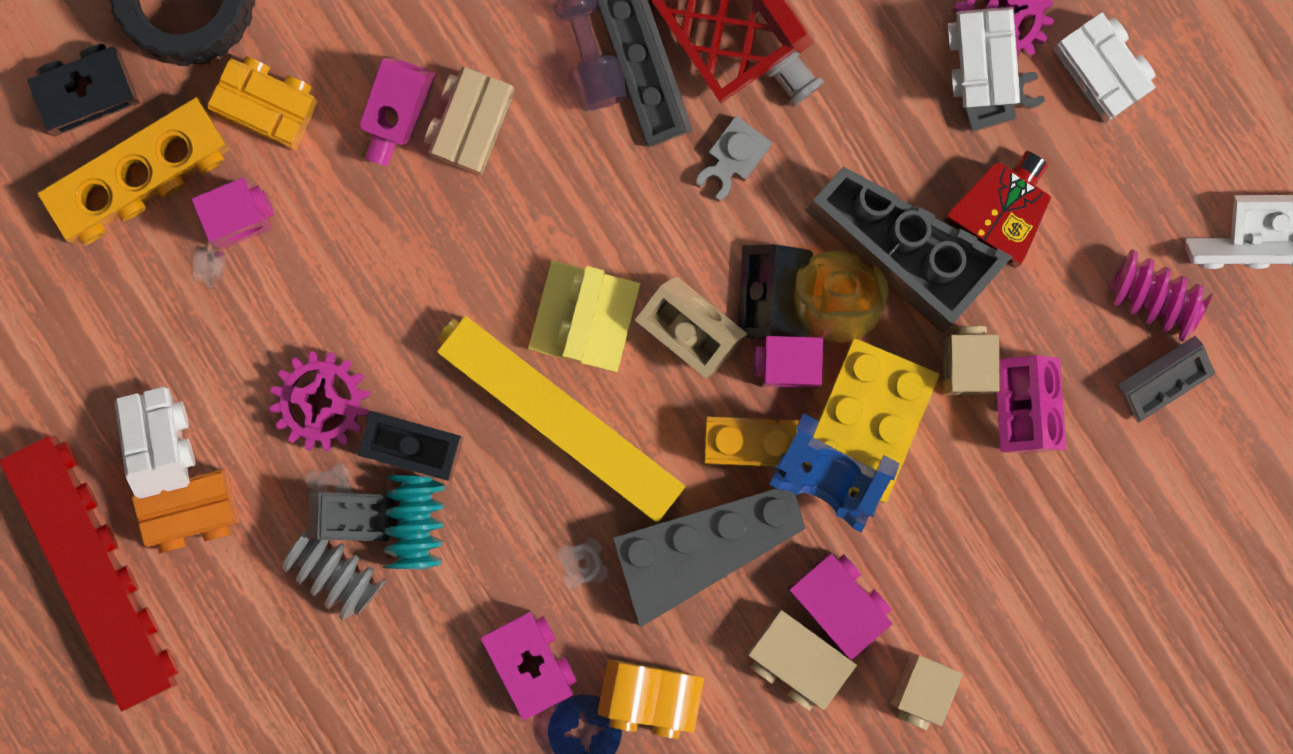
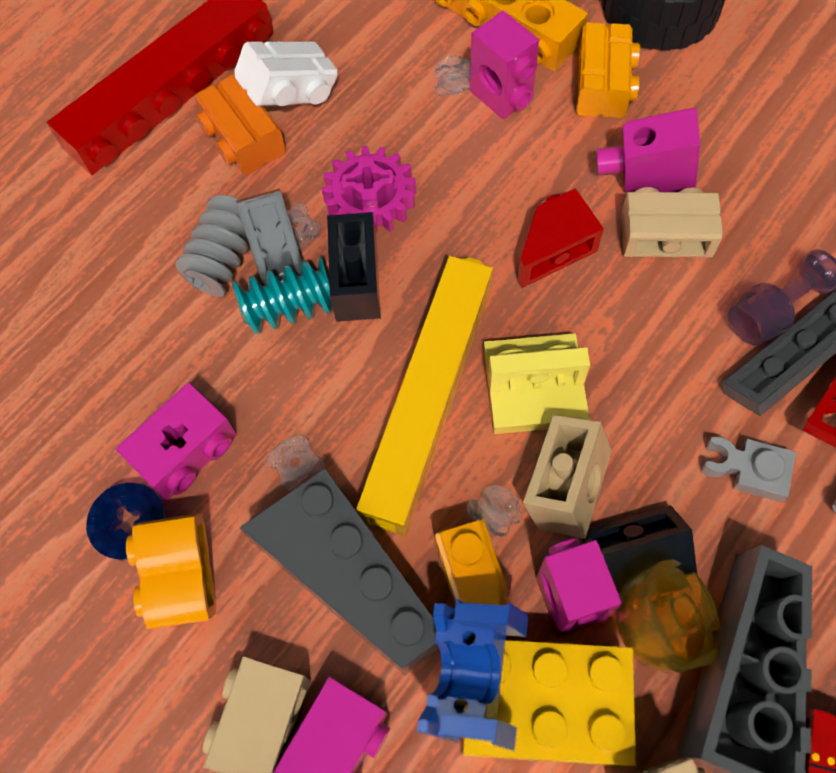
camera: 80 degrees right, 20 degrees down
(442, 235) = (558, 236): none -> red slope
(689, 391) = (497, 508): none -> clear plate

